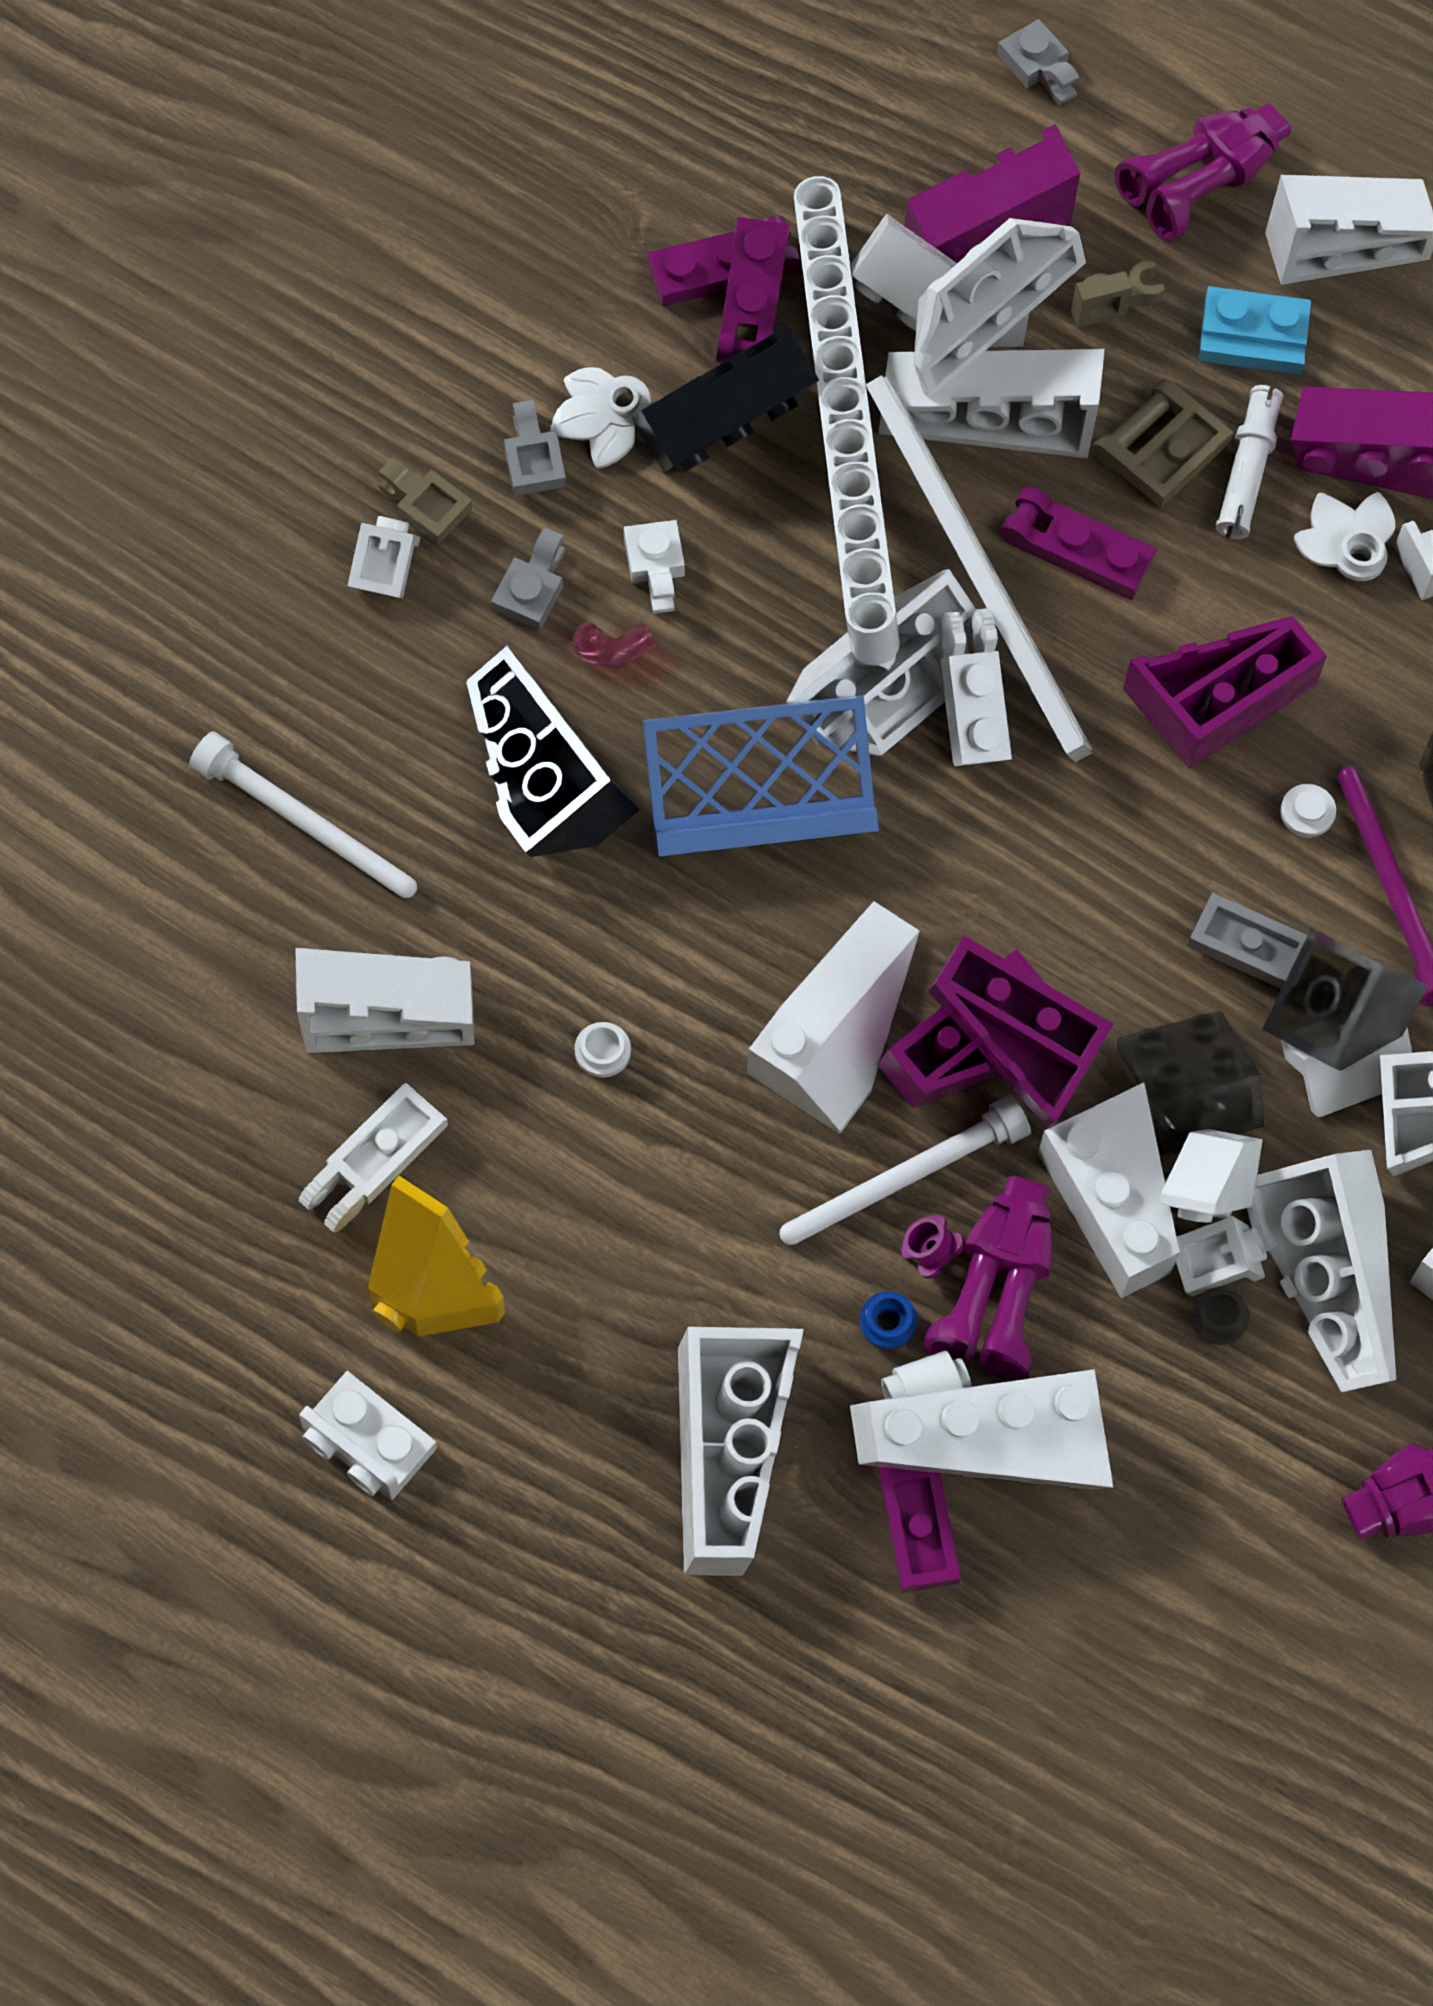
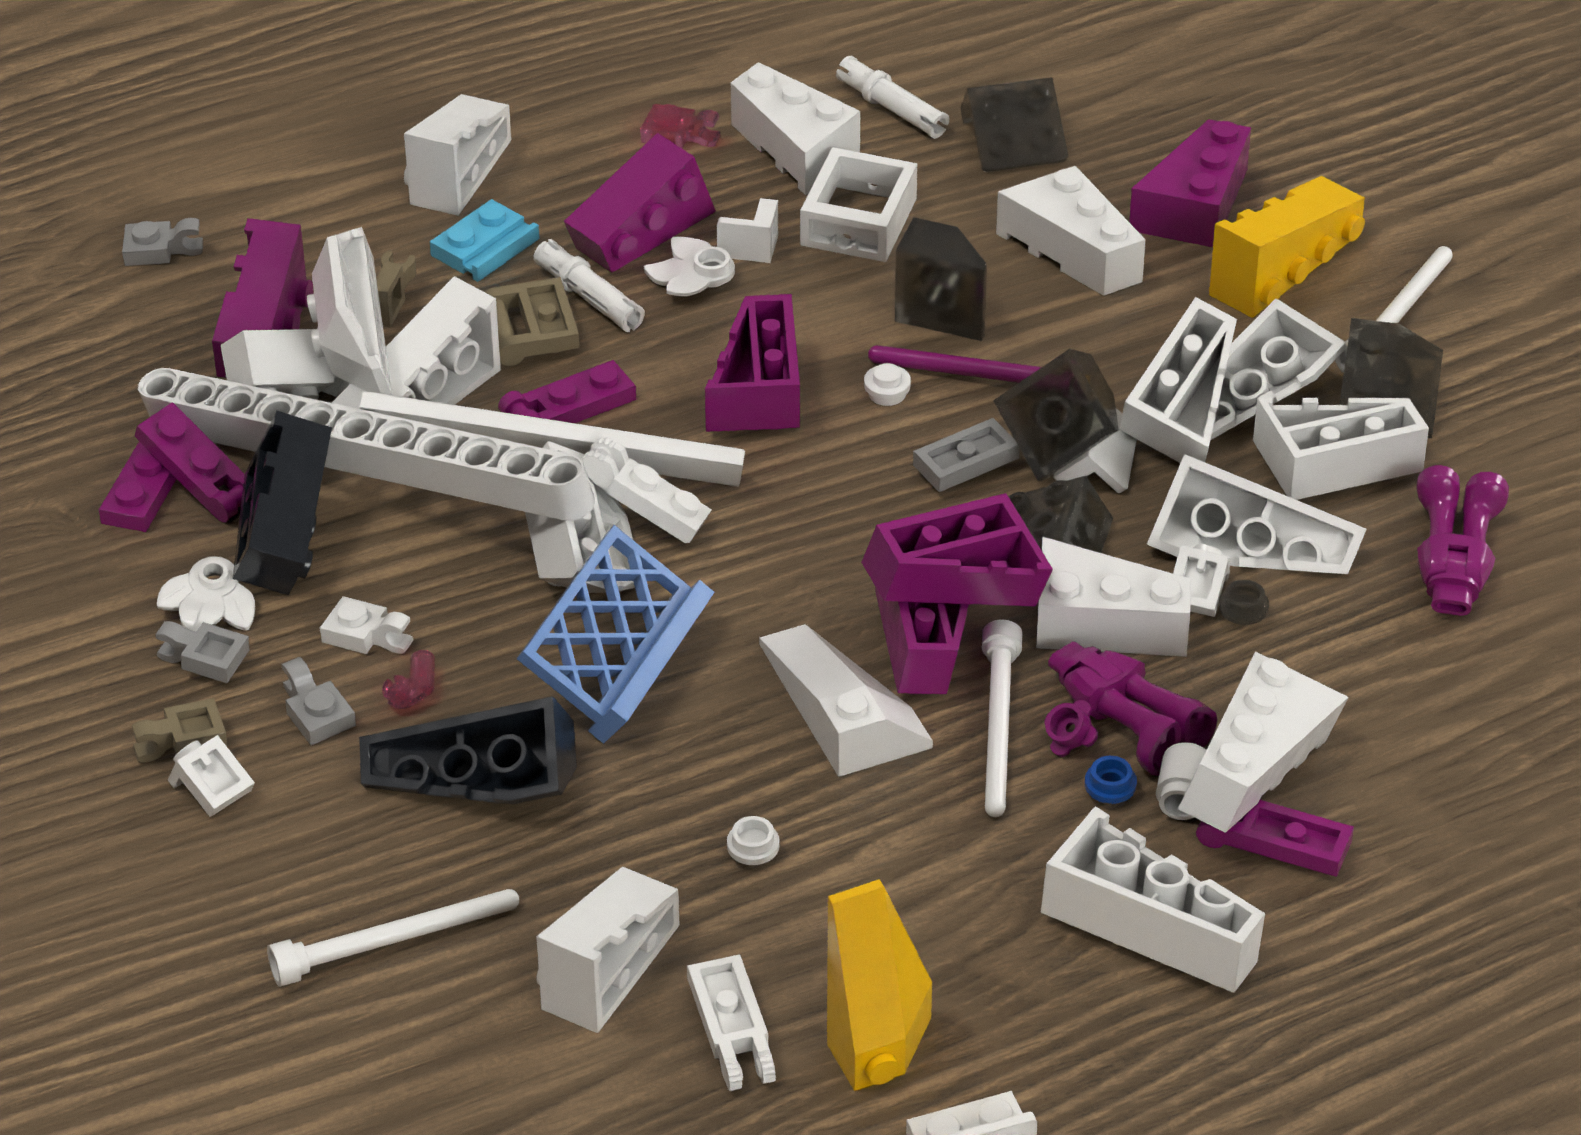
camera: 55 degrees left, 25 degrees down
(1213, 1175) = (1143, 534): white slope -> none
(1228, 145) = (331, 180): magenta piece -> none

